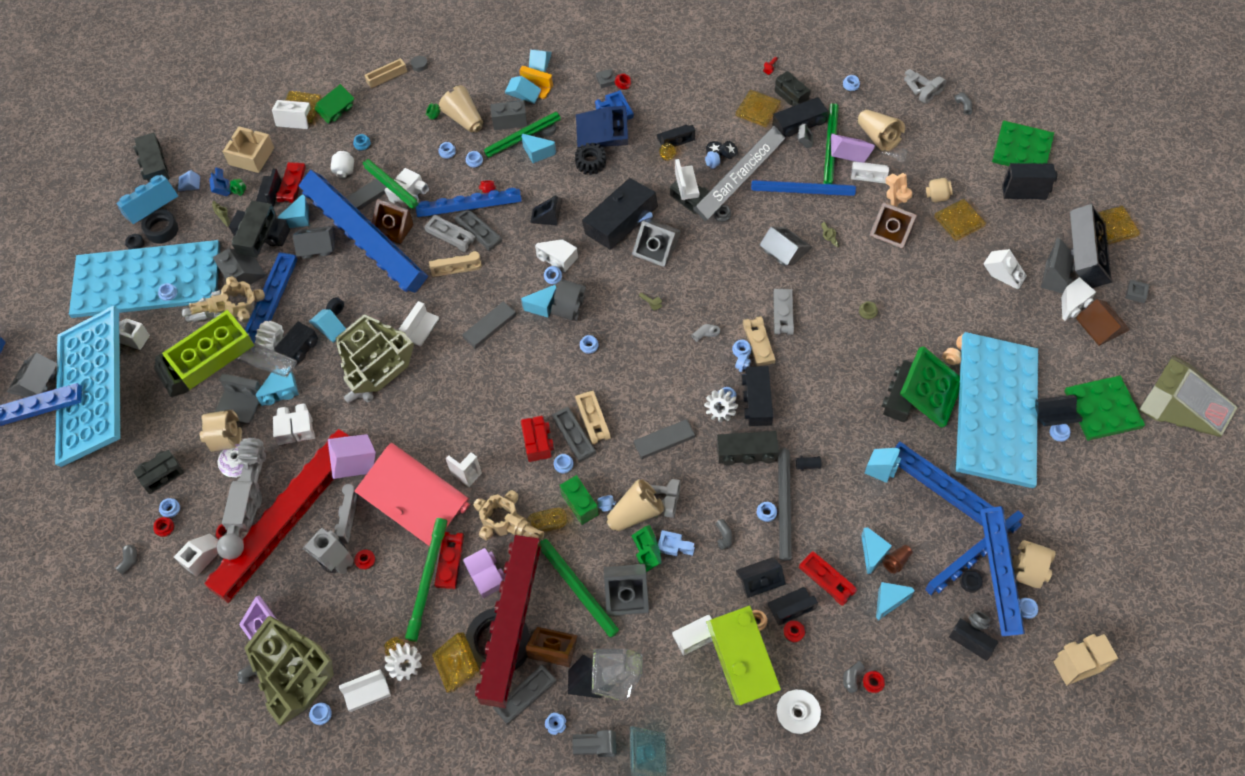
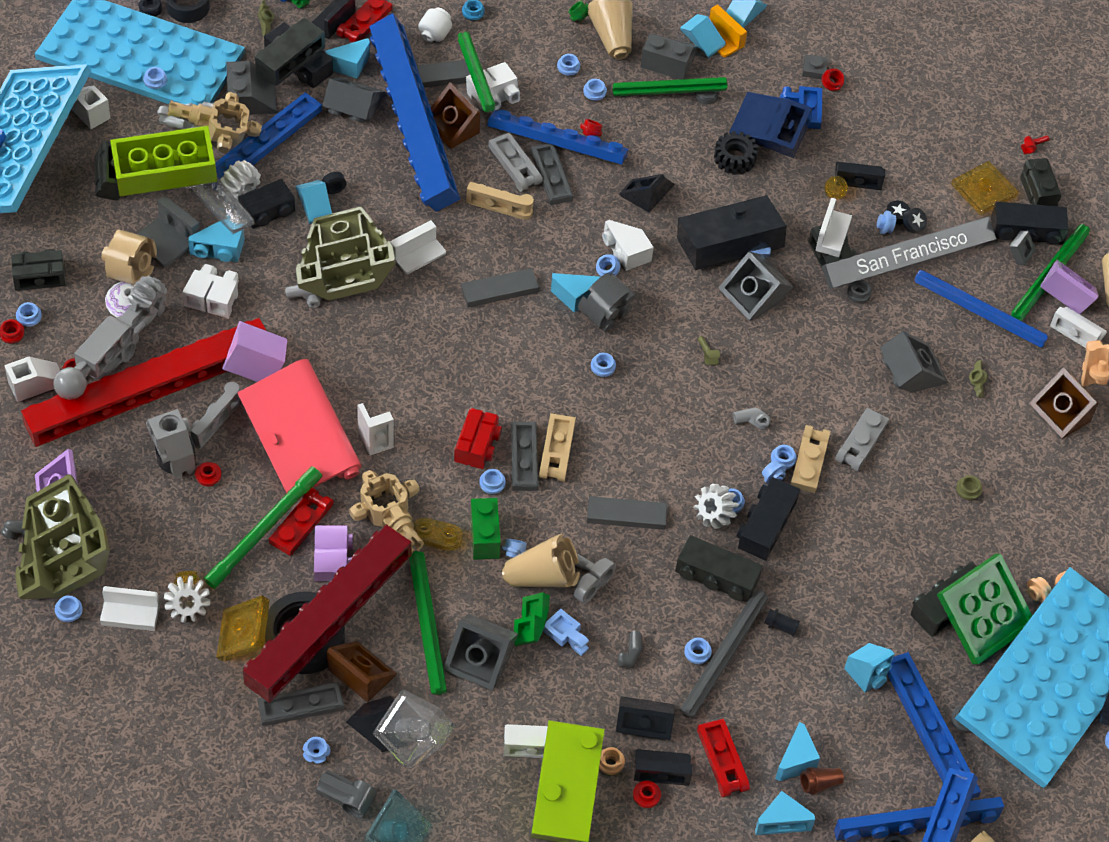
camera: 20 degrees right, 5 degrees down
(538, 148) = (679, 111): medium azure slope -> none

